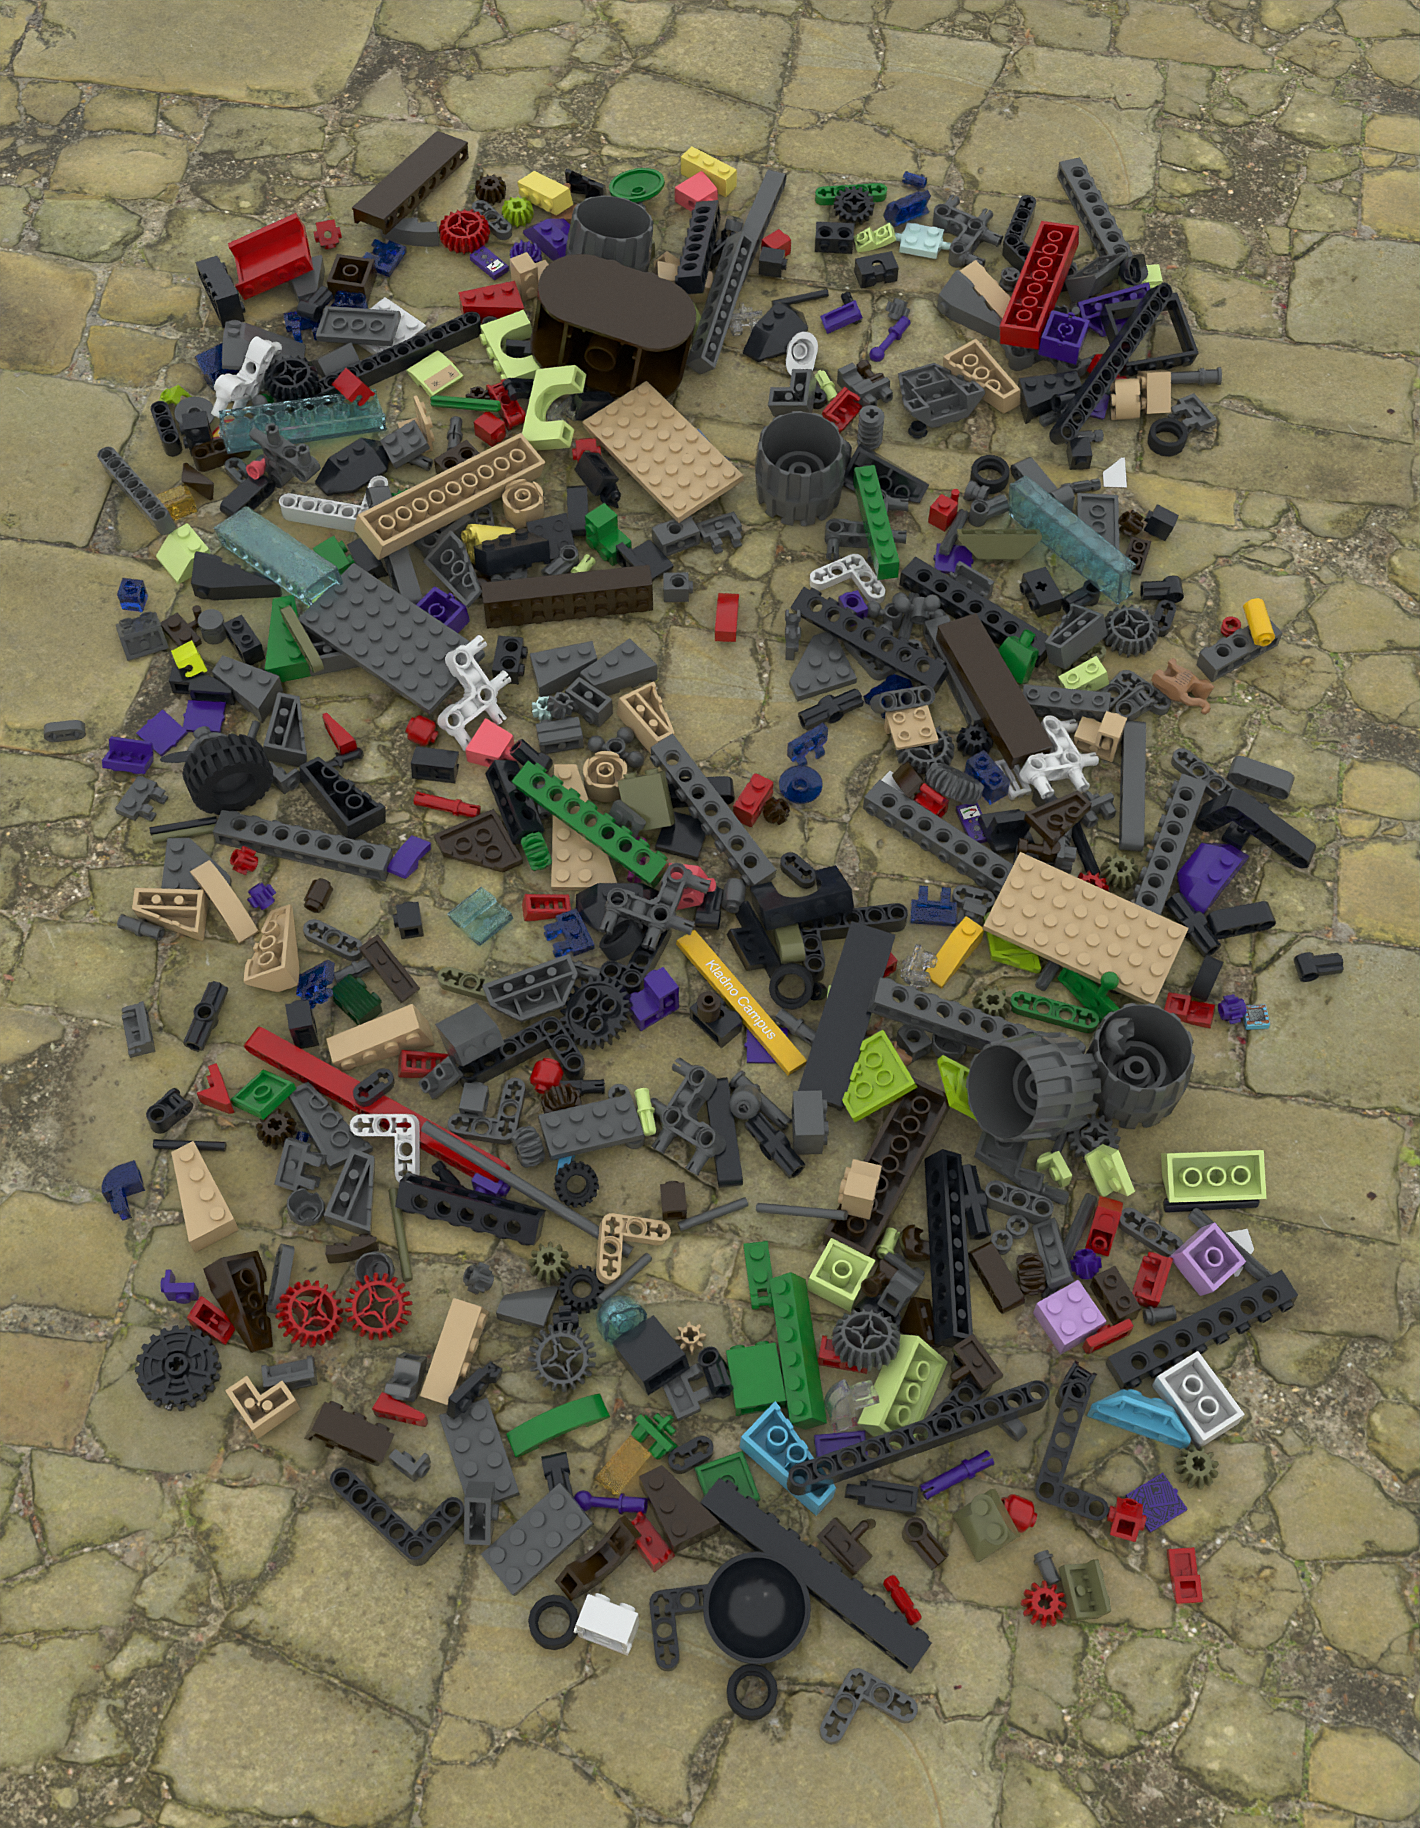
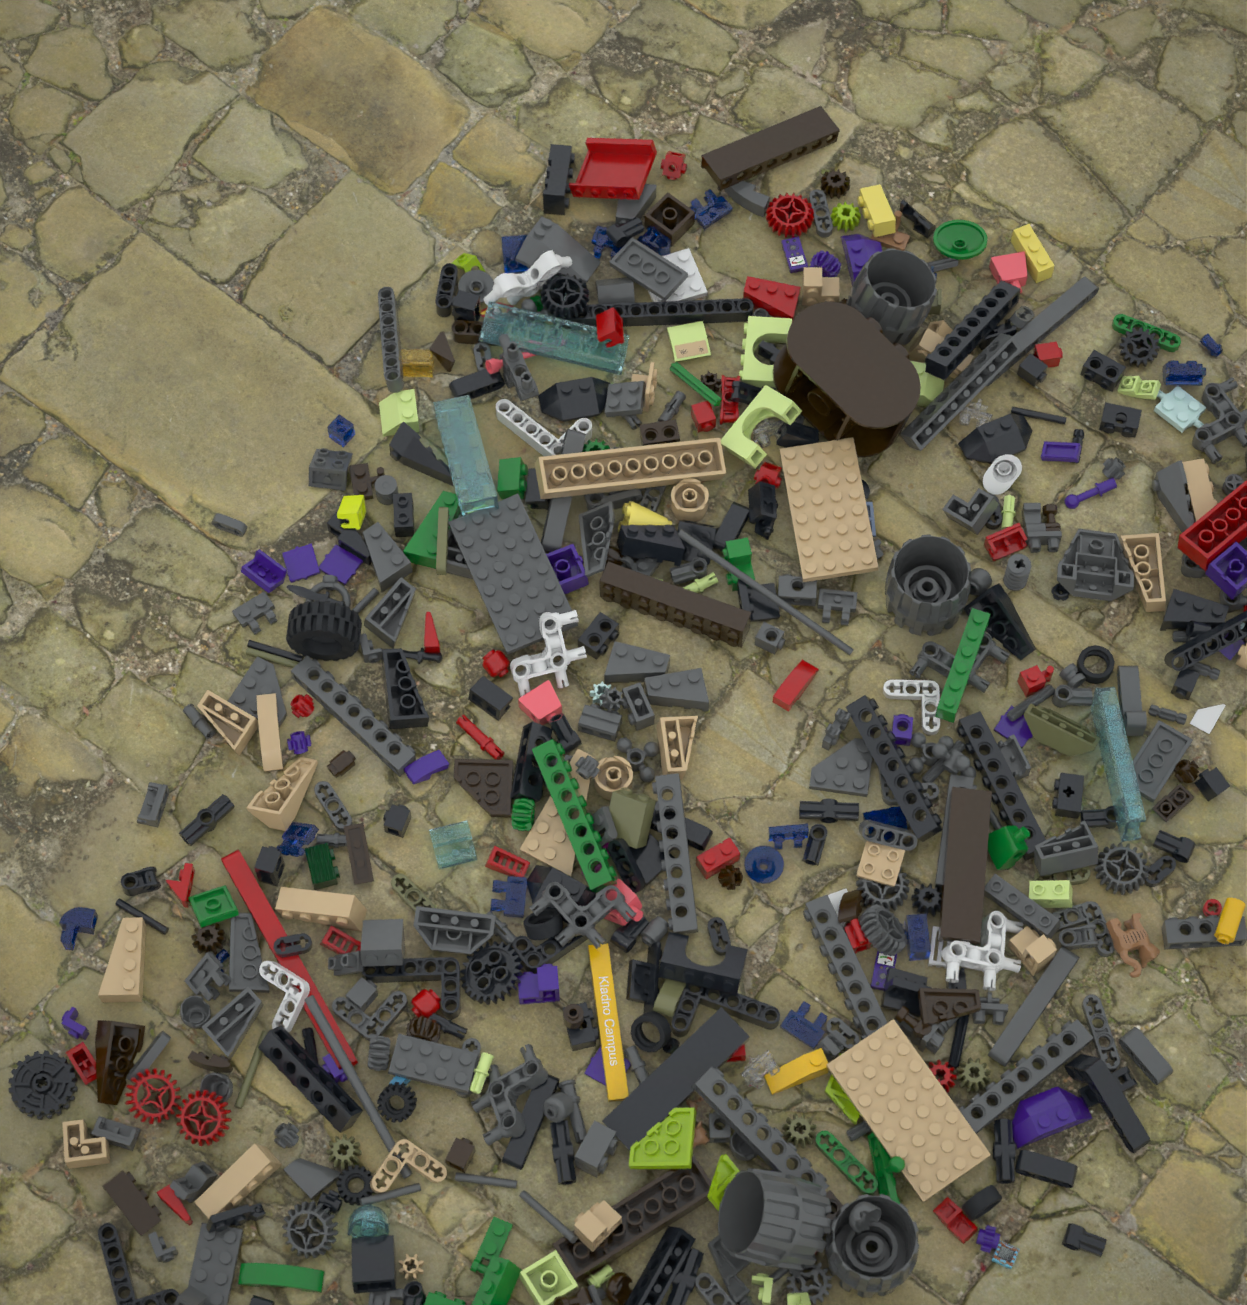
camera: 30 degrees right, 5 degrees up
(577, 773) = (587, 767): none -> dark grey gear
(648, 545) = (765, 592): none -> dark grey piece
(659, 832) = (625, 850): none -> black beam
(838, 744) = (815, 845): none -> black piece

